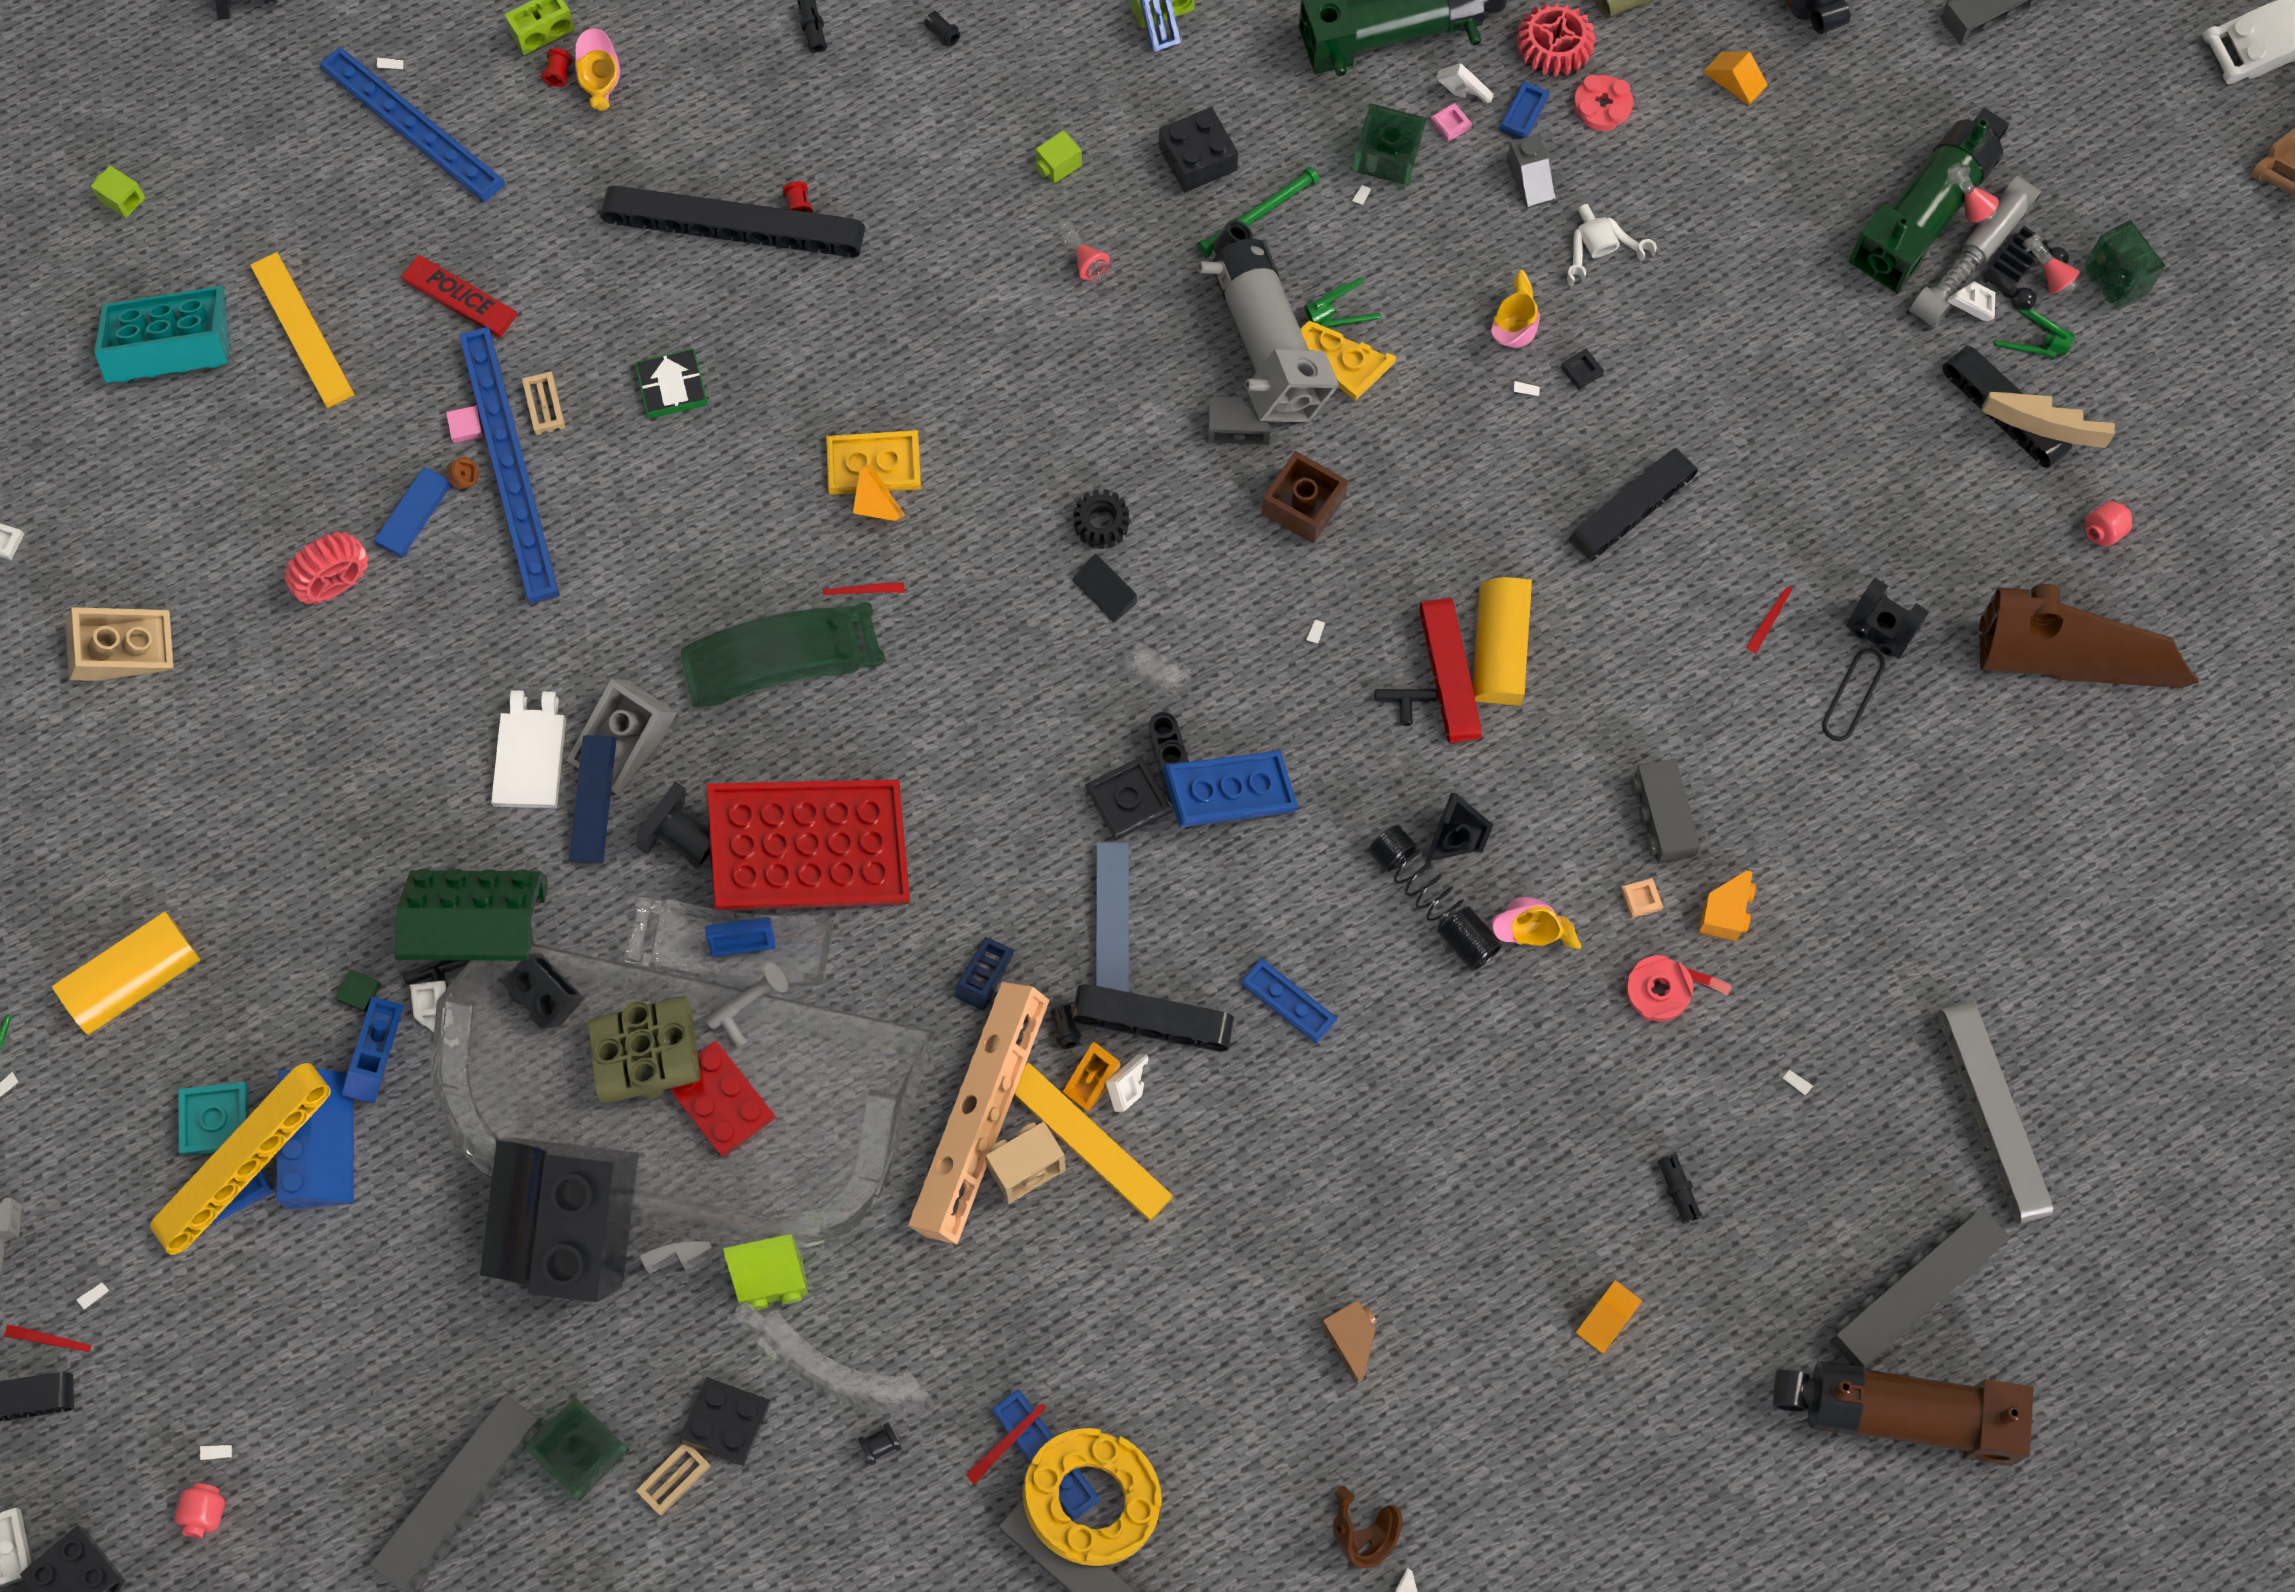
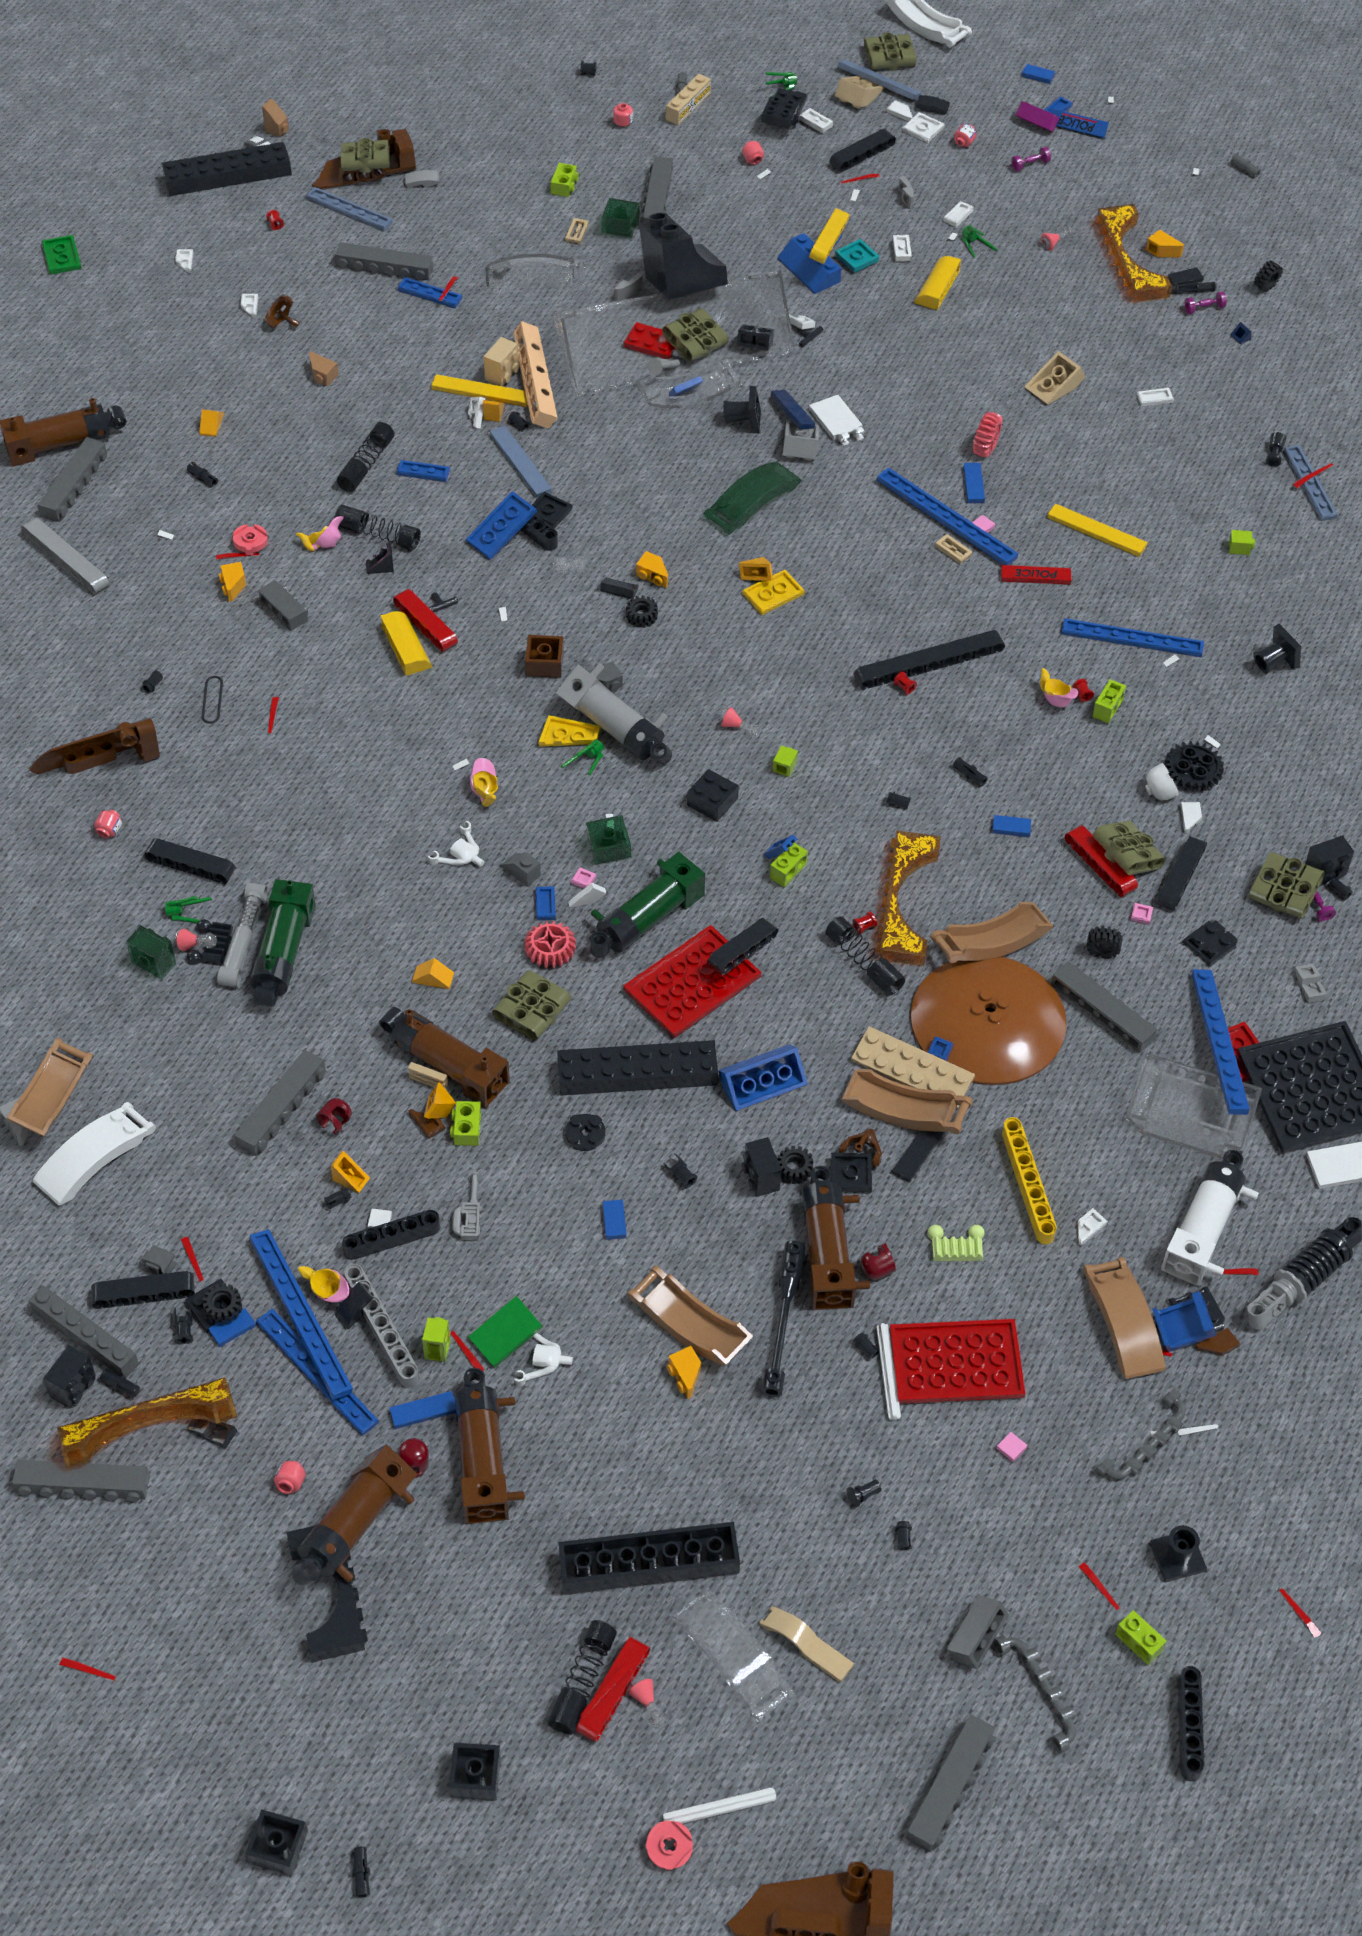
camera: 150 degrees right, 15 degrees down
(120, 1095) = (902, 248): none -> white plate
(162, 334) = (1158, 497): teal slope -> none
(357, 990) = (837, 316): dark green tile -> none
(372, 1050) = (811, 296): blue slope -> none
(462, 473) = (964, 503): dark orange tile -> none
(467, 914) = (809, 342): dark green slope -> none
(671, 383) = (899, 582): tile -> none
(724, 1421) = (569, 247): black plate -> none
(767, 1271) = (586, 287): lime slope -> none
(806, 844) = (681, 426): red plate -> none
(870, 588) = (730, 544): red sticker -> none
(975, 991) = (569, 415): dark blue slope -> none
(1035, 588) = (652, 568): none -> light orange slope
(1127, 1466) = (390, 259): yellow plate -> none
(1152, 1017) = (480, 433): black beam -> none
(1266, 206) = (644, 814): green bar -> none
(1418, 1039) = (355, 469): none -> black piece
(1582, 369) = (436, 785): black tile -> none
(1607, 87) = (502, 917): coral plate -> none
(1632, 503) = (371, 728): black beam -> none
(1641, 898) = (277, 572): light nougat tile -> none
(1875, 608) = (208, 727): black brick -> none
(1947, 762) = (152, 681): none -> black pin
(1975, 300) = (233, 905): white tile -> none
(1979, 205) = (250, 944): piece -> none
(2038, 416) = (168, 843): tan slope -> none

